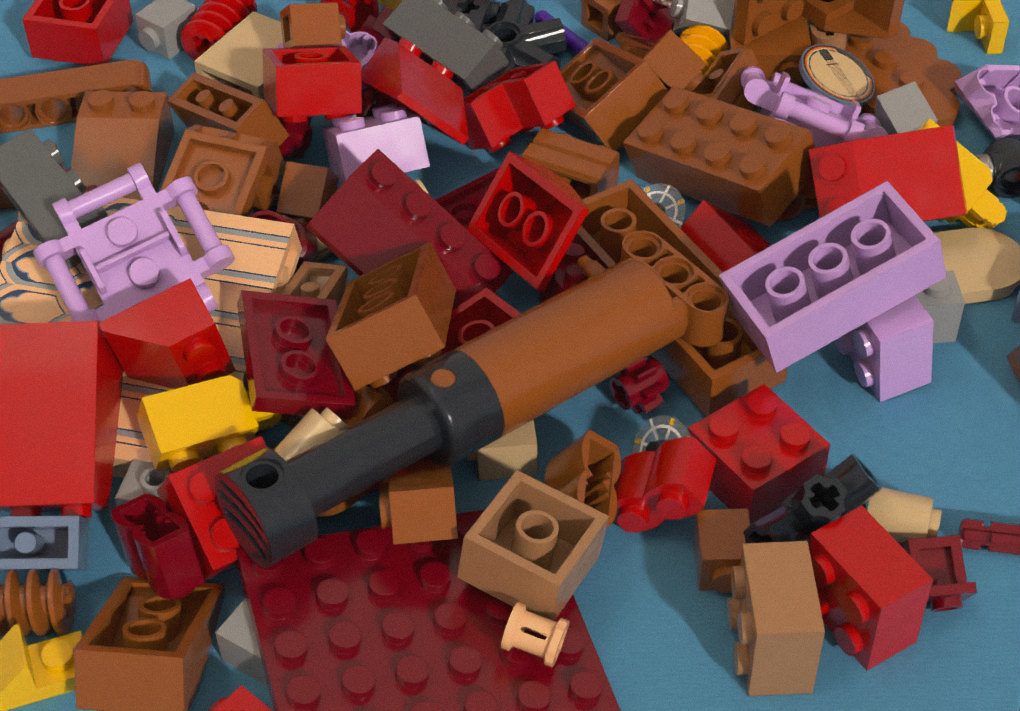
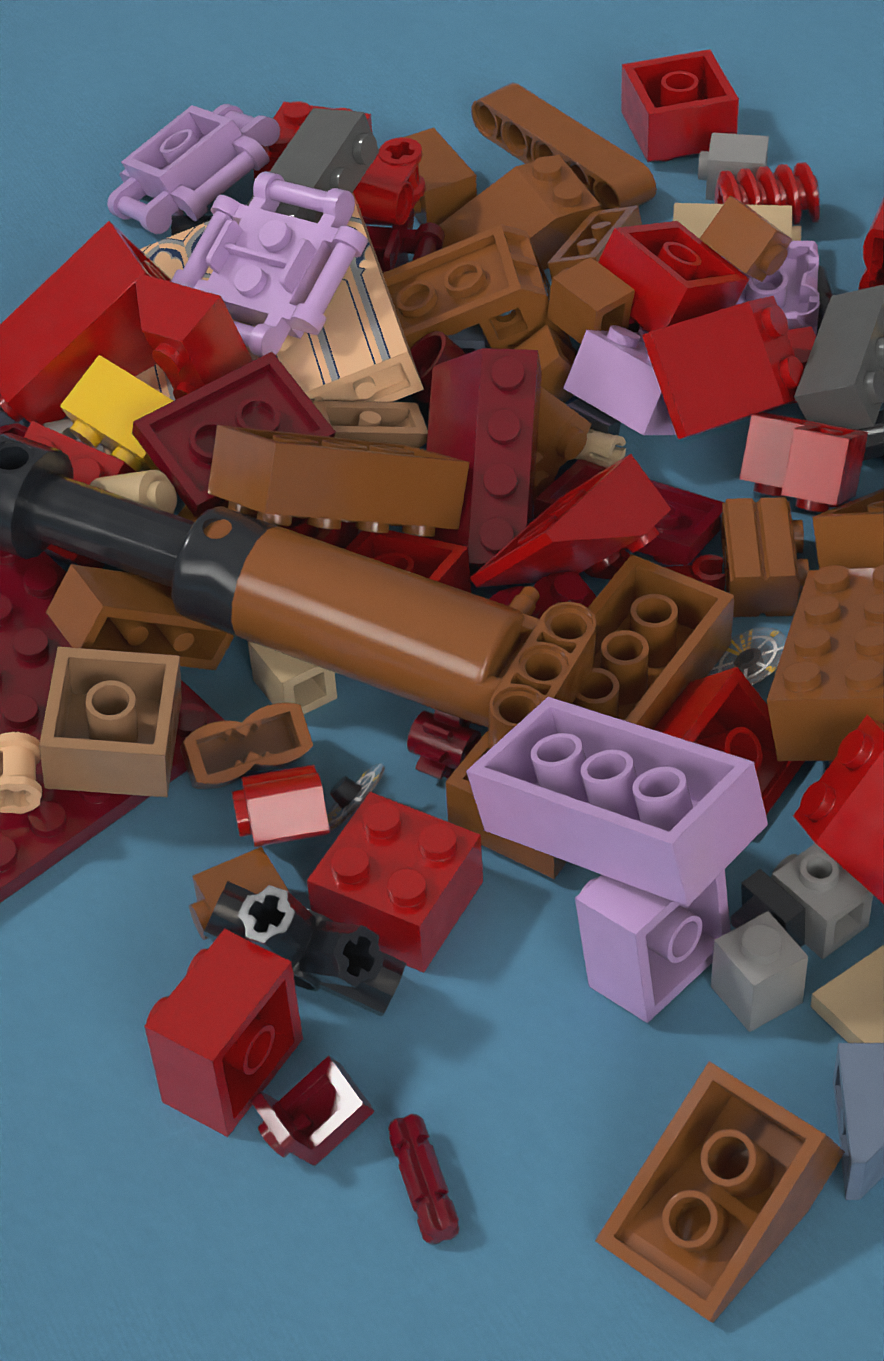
camera: 65 degrees right, 0 degrees up
(303, 125) = (589, 299): none -> dark orange brick
(776, 618) = (130, 959): medium nougat brick -> none
(905, 514) = (382, 1047): tan brick -> none

